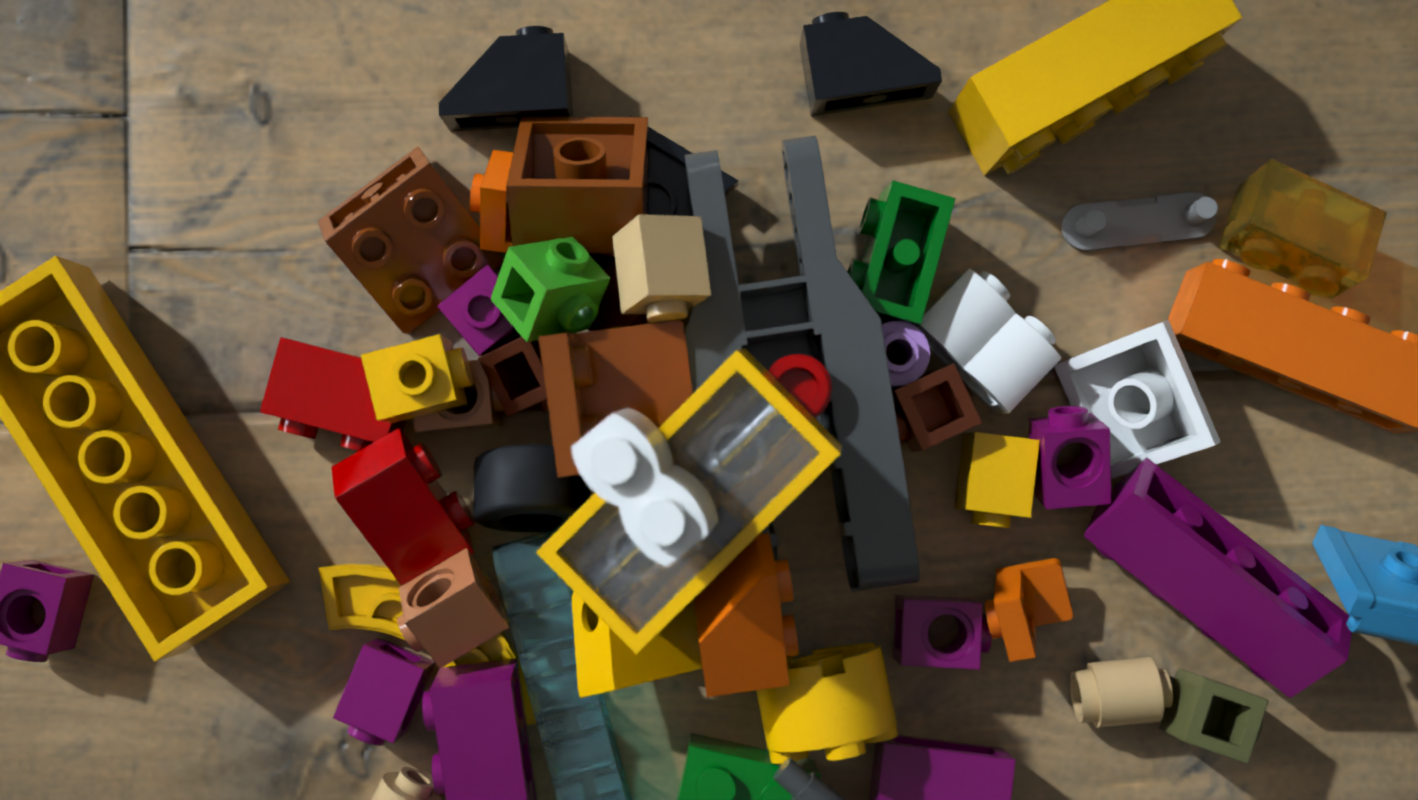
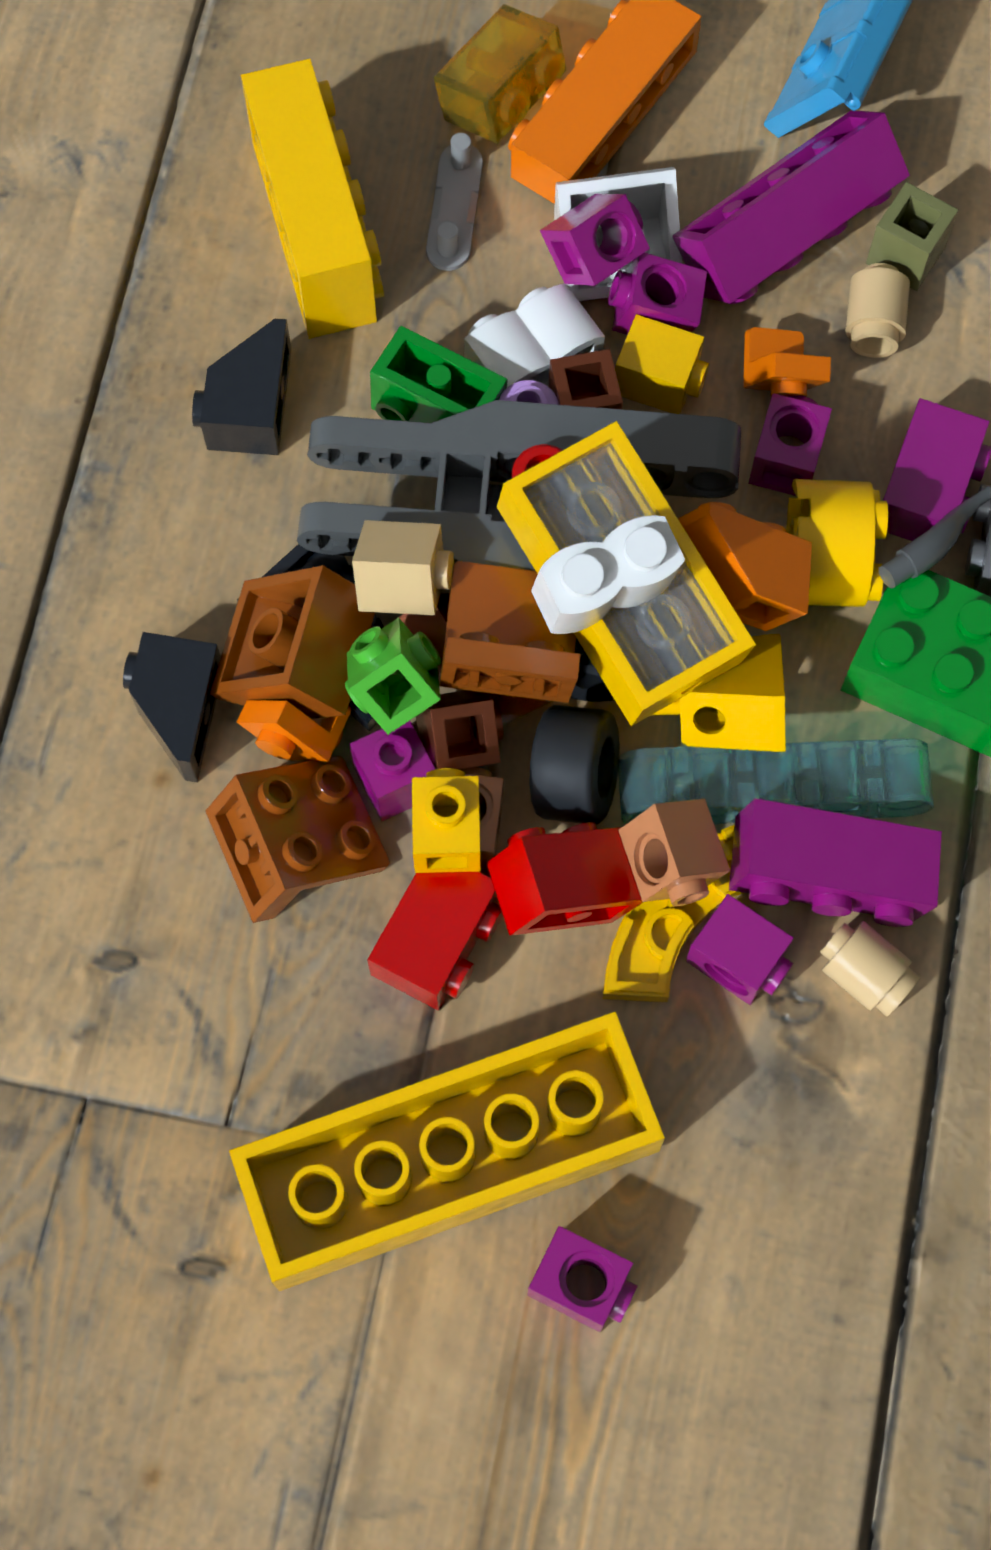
camera: 75 degrees left, 15 degrees down
(1109, 354) = (574, 244): none -> magenta brick

